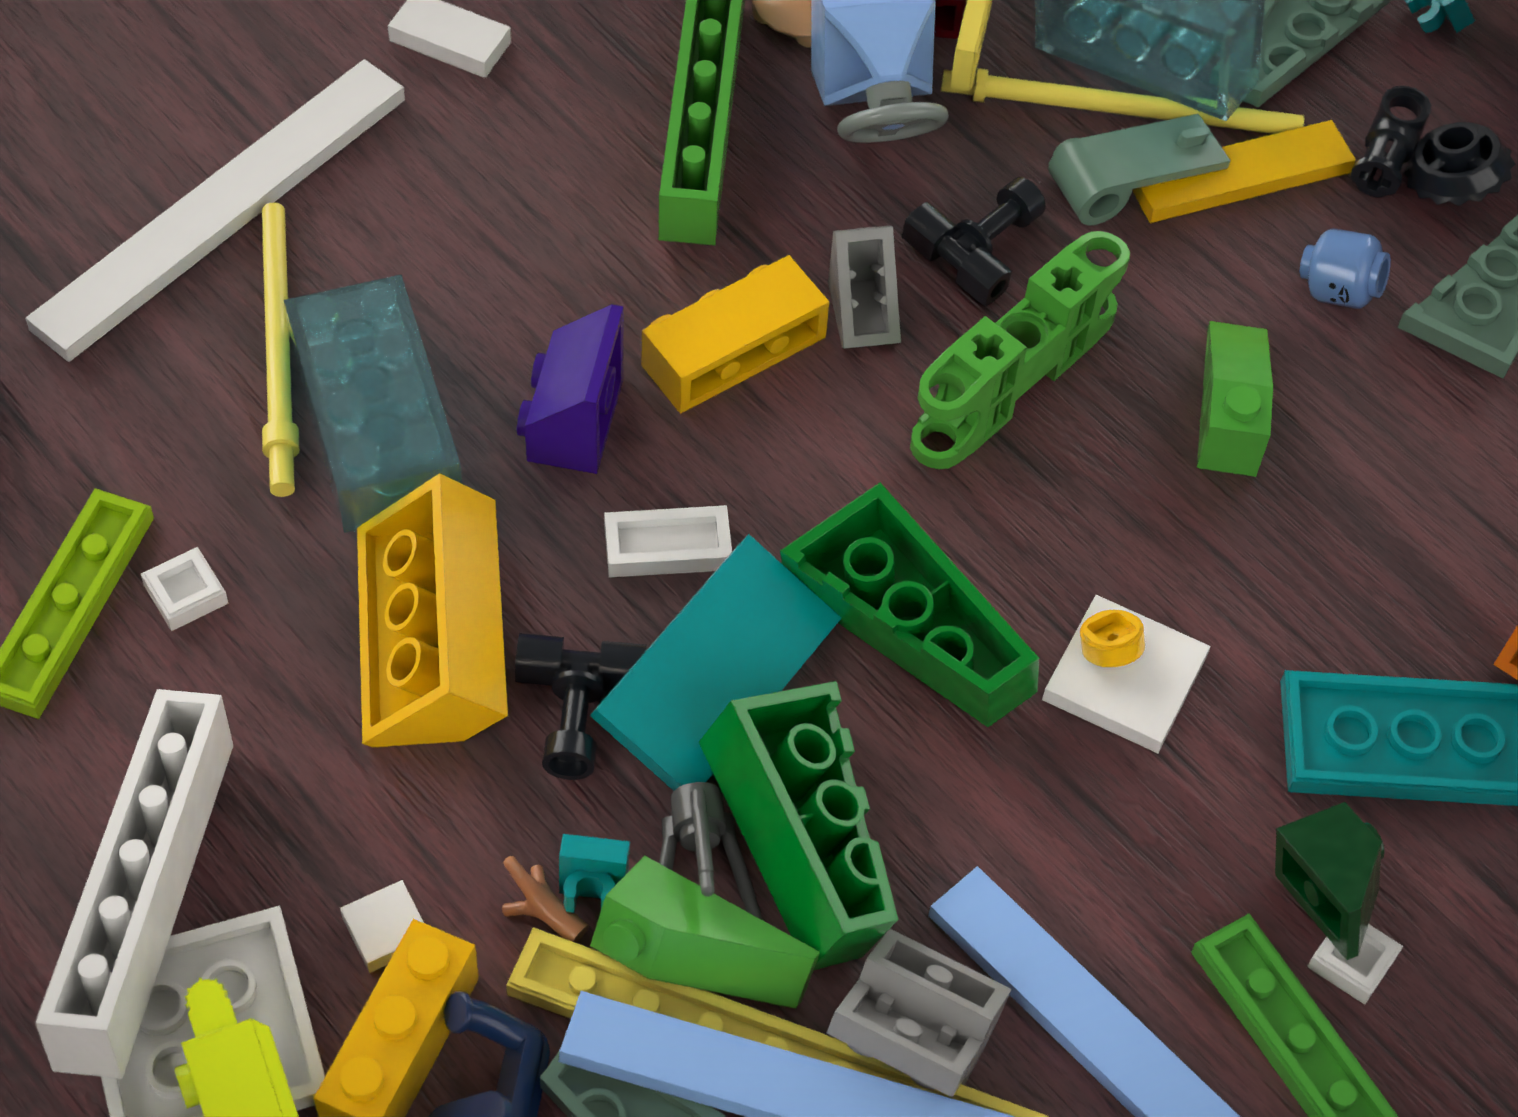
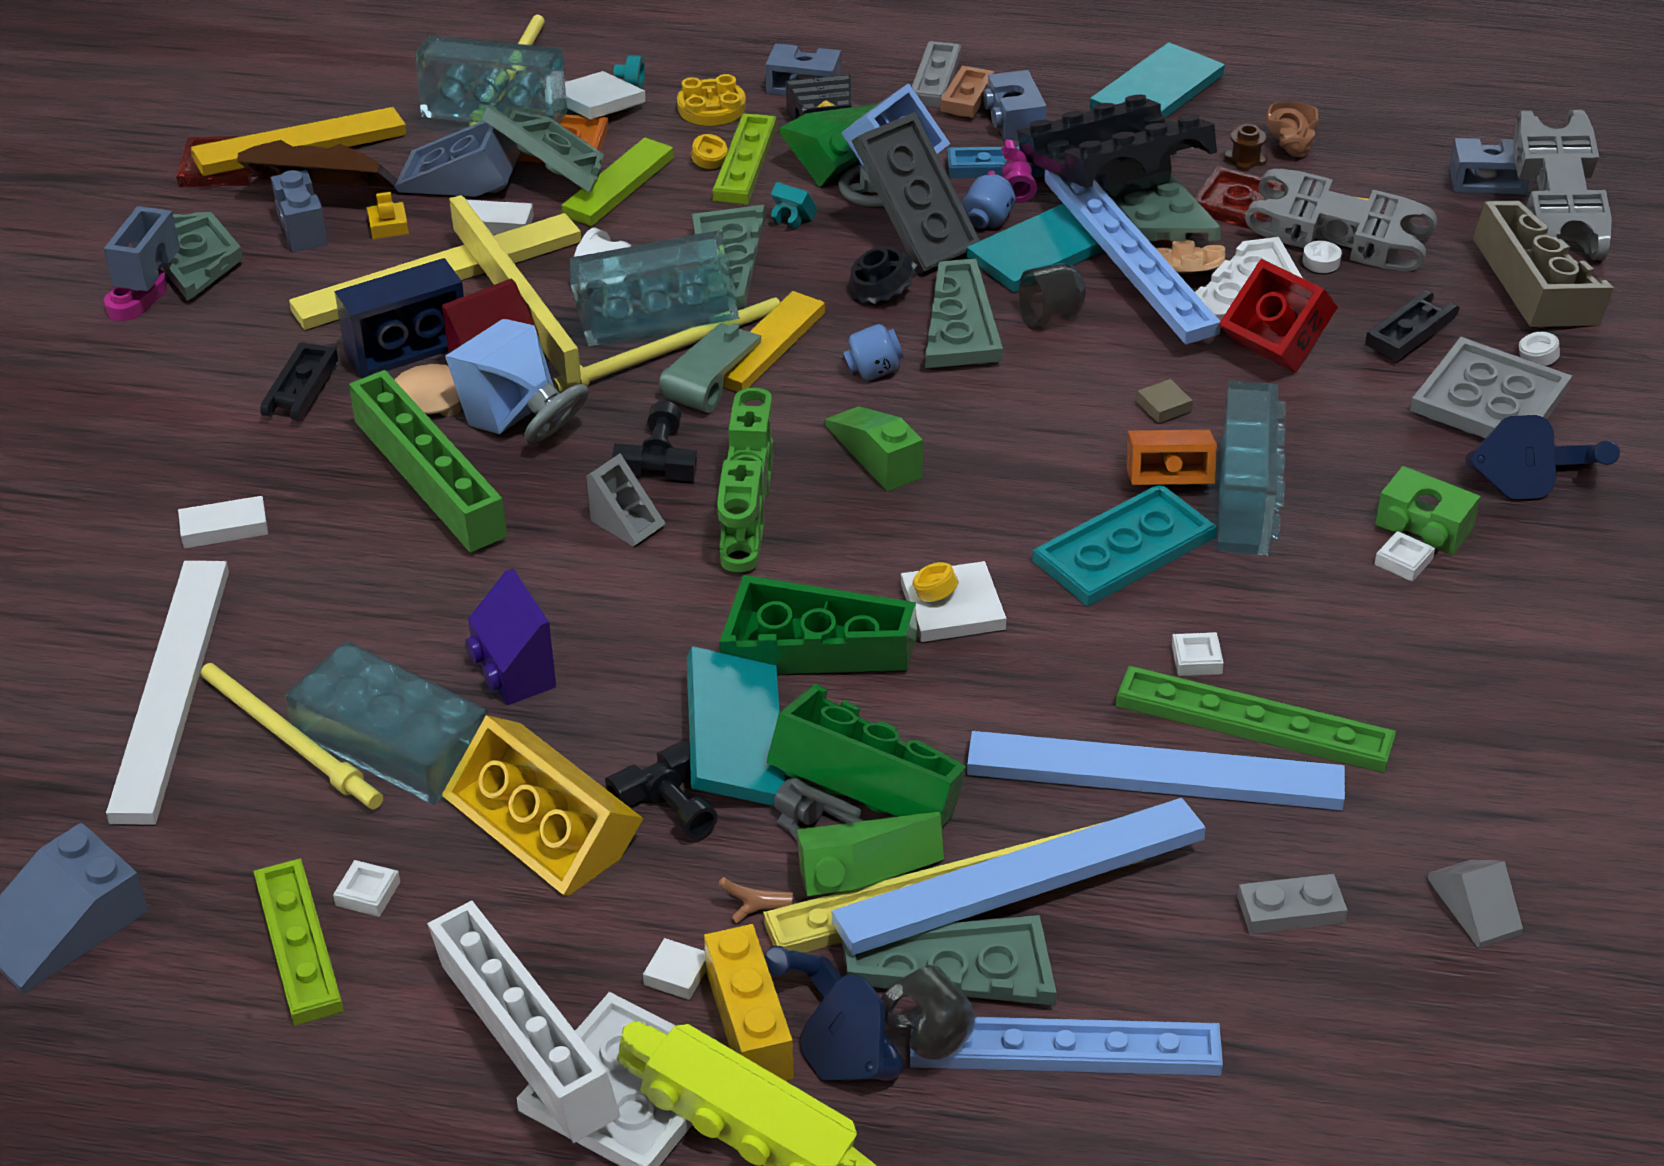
camera: 35 degrees left, 15 degrees down
(590, 867) = (770, 860): teal tile -> none
(666, 540) = (636, 691): white tile -> none
(734, 333) = (572, 565): yellow brick -> none
(920, 1013) = (1016, 809): light grey brick -> none
(1332, 872) = (1154, 617): dark green slope -> none
(1403, 134) = (828, 279): black connector -> none

